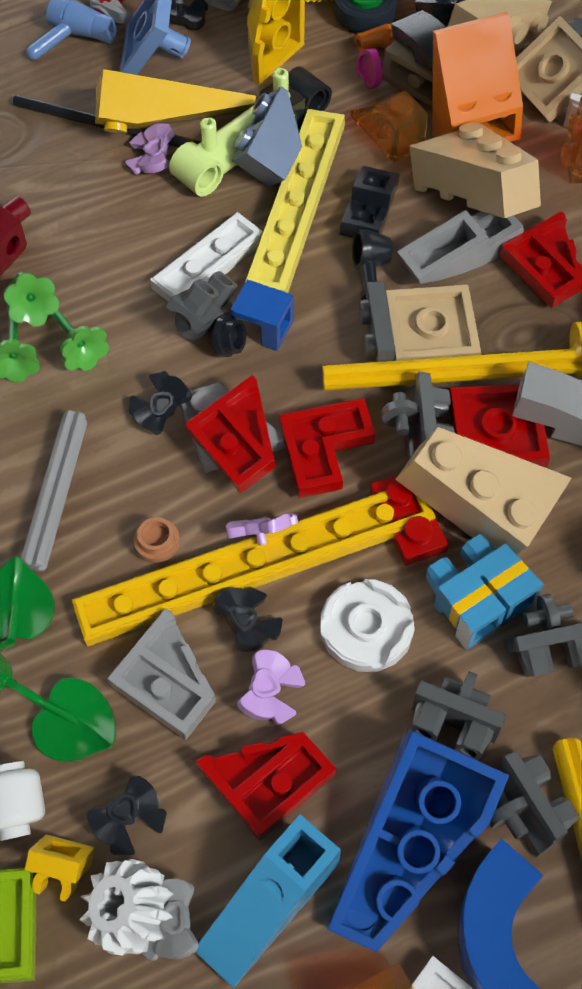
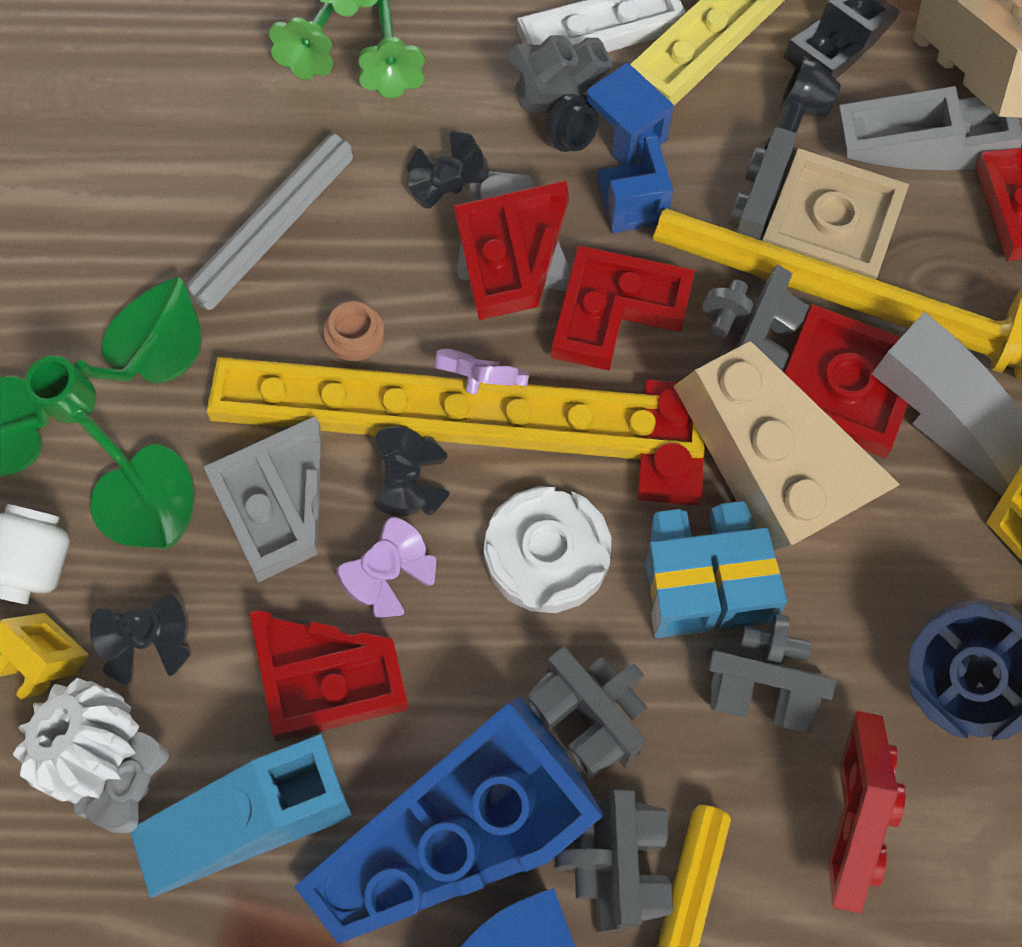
camera: 25 degrees right, 5 degrees up
(296, 362) = (636, 192): none -> blue panel

